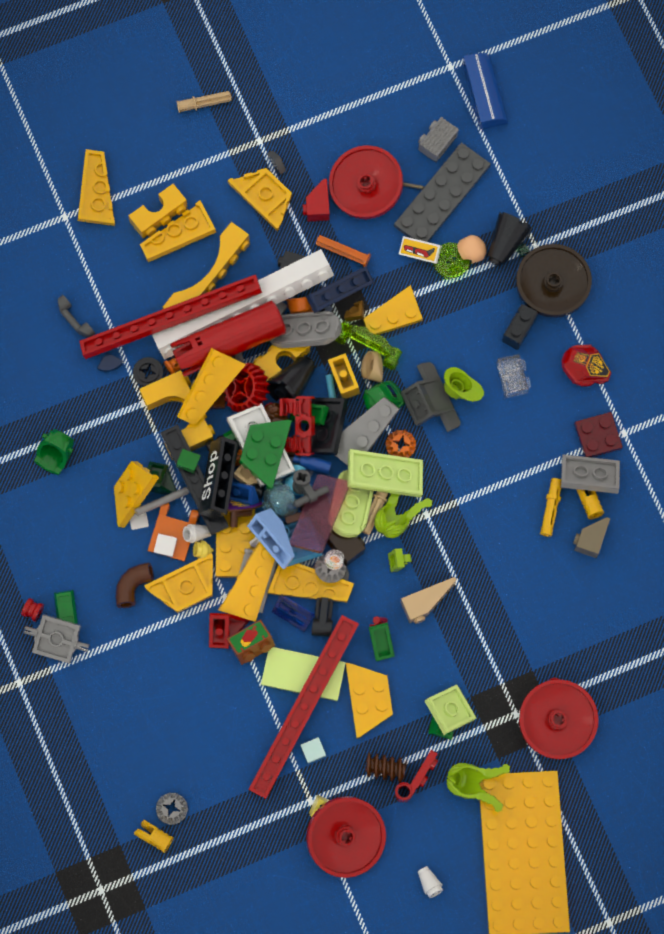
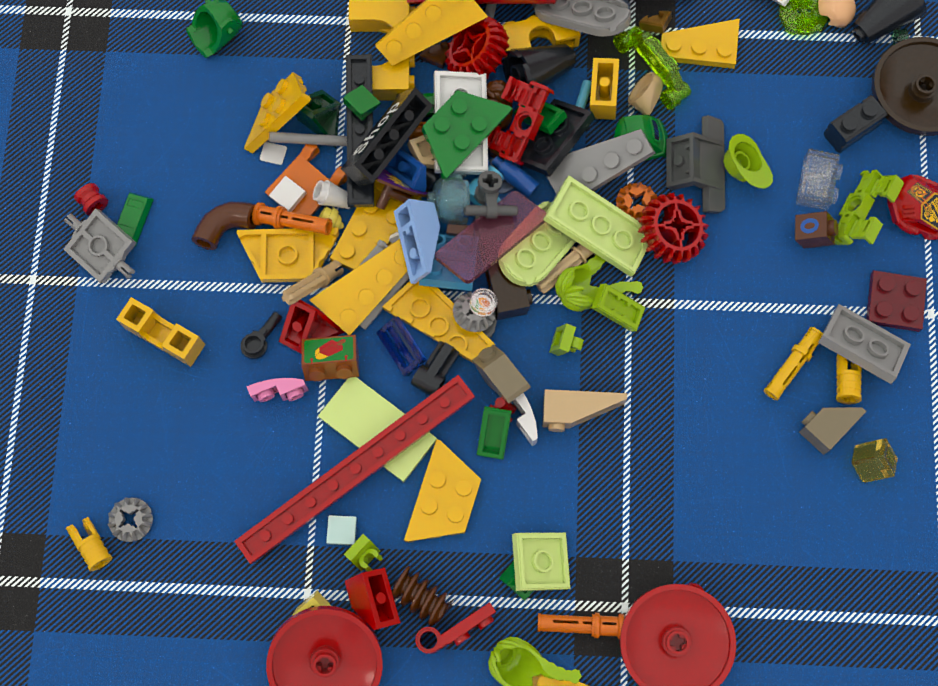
camera: 30 degrees right, 0 degrees up
(130, 678) = (159, 332): none -> yellow arch
(169, 562) = (281, 217): none -> orange pin
(195, 656) = (255, 344): none -> black plate
(217, 593) = (319, 278): none -> tan axle
(231, 675) = (288, 388): none -> bright pink slope
(334, 758) = (362, 553): none -> lime tile
(356, 782) = (373, 598): none -> red slope
(368, 601) = (500, 373): none -> dark tan slope
(399, 624) = (526, 422): none -> white slope
(422, 522) = (618, 307): none -> lime plate
(429, 440) = (678, 220): none -> red gear
(502, 733) = (595, 625): none -> orange pin
(526, 411) = (815, 229): none -> reddish brown brick
(547, 395) = (853, 221): none -> lime piece
(629, 547) = (874, 460): none -> clear yellow panel

